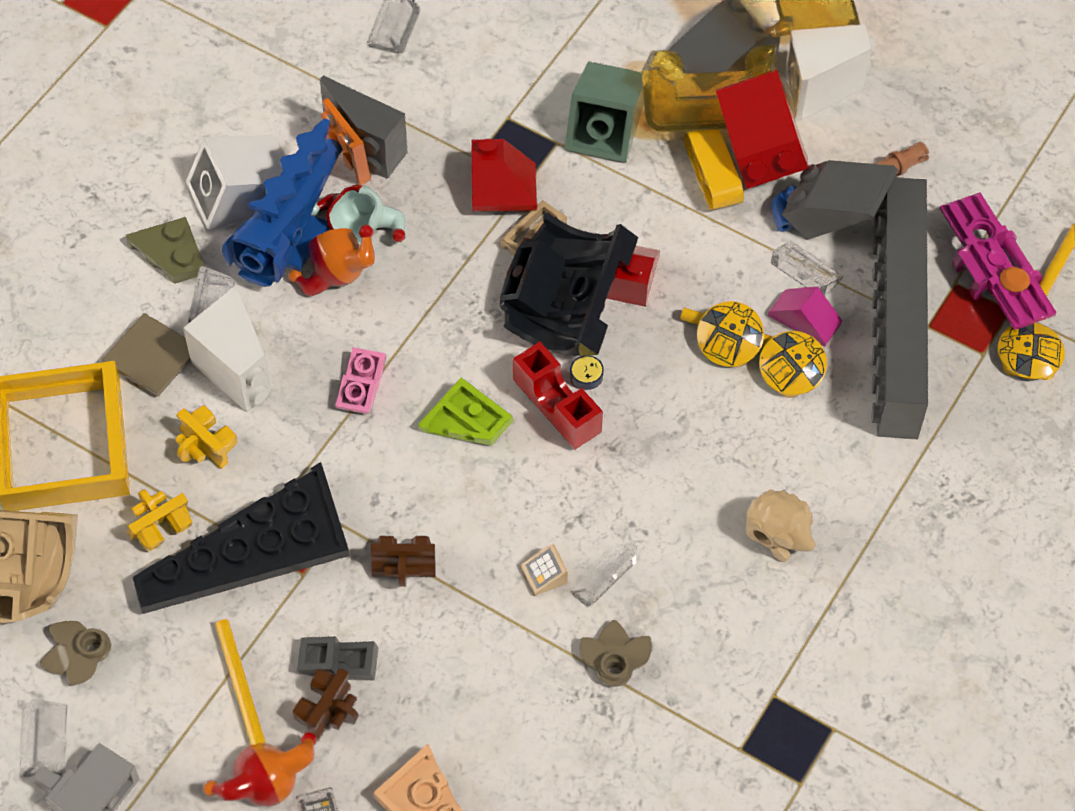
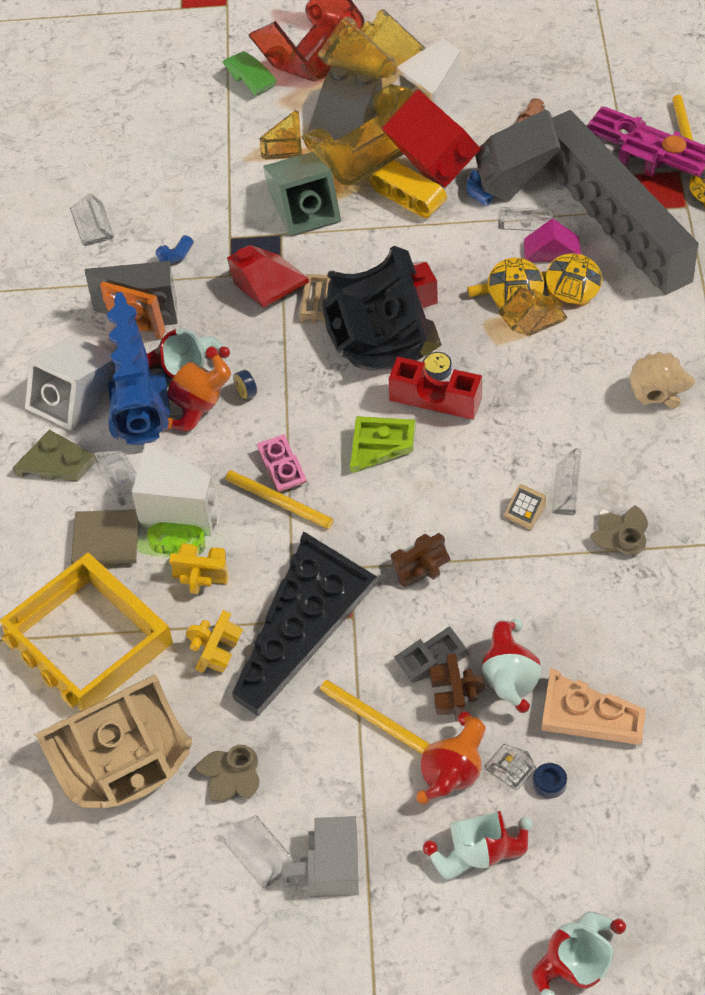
camera: 30 degrees left, 5 degrees down
(214, 391) = (176, 535): none -> clear neon green beam
(331, 416) = (279, 499): none -> yellow bar
(391, 280) = (245, 384): none -> dark blue tile
(392, 717) = (510, 666): none -> light aqua piece
(439, 105) = (177, 253): none -> blue arm
(636, 41) = (283, 139): none -> clear yellow slope
(720, 373) = (531, 311): none -> clear yellow slope

